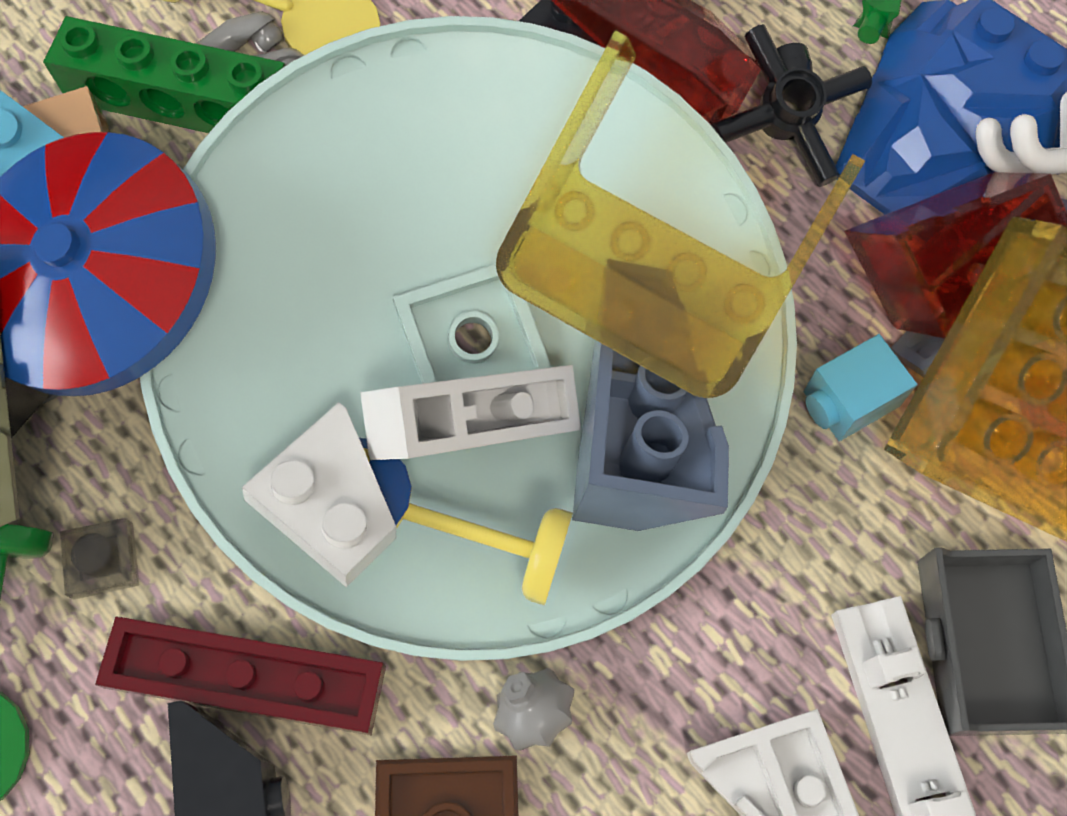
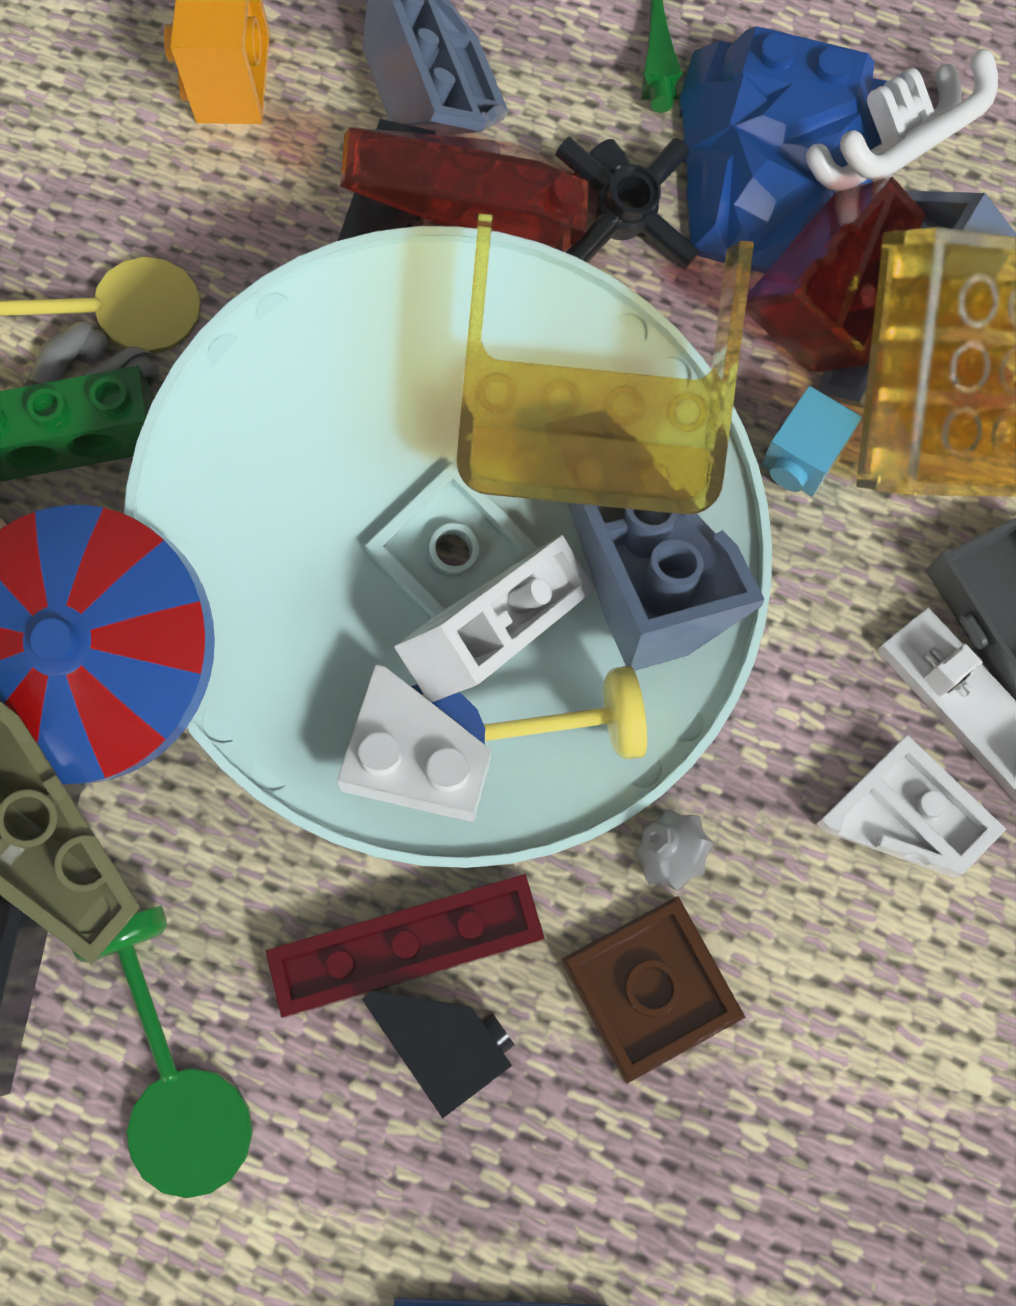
camera: 25 degrees left, 5 degrees up
(99, 558) = (214, 908): clear smoke plate -> none

